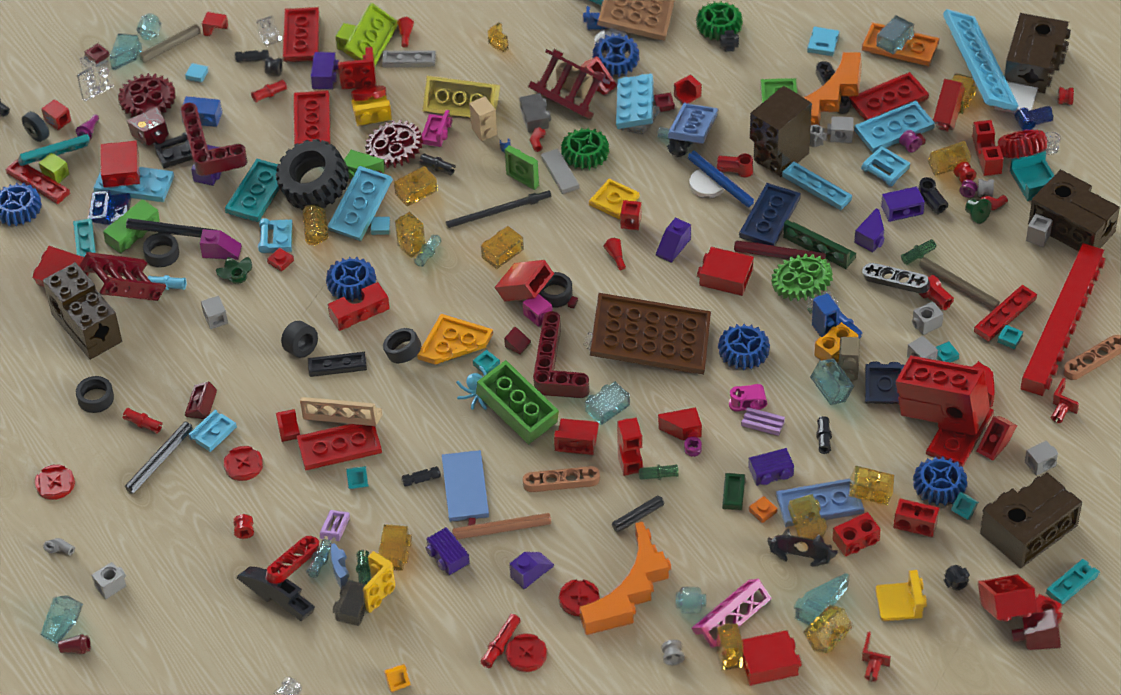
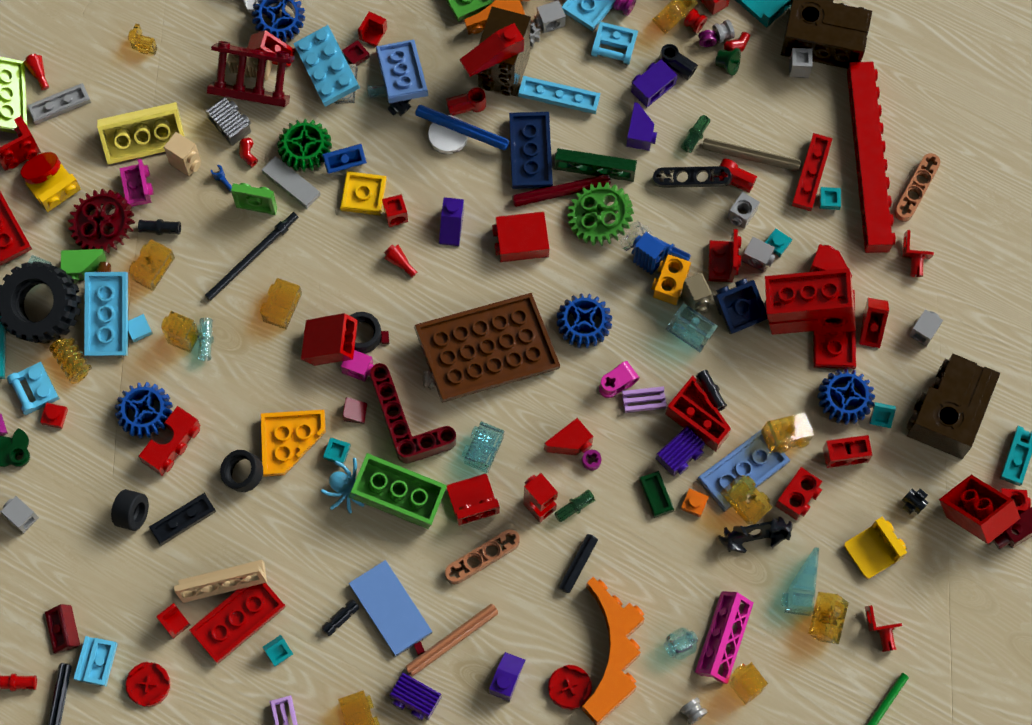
camera: 30 degrees left, 20 degrees up
(611, 167) = (344, 158): none -> blue slope
(770, 657) = (788, 673): red brick -> none
(771, 110) = (495, 49): none -> red slope
(799, 438) = (696, 411): none -> red wedge
(891, 344) = (724, 259): none -> red bracket

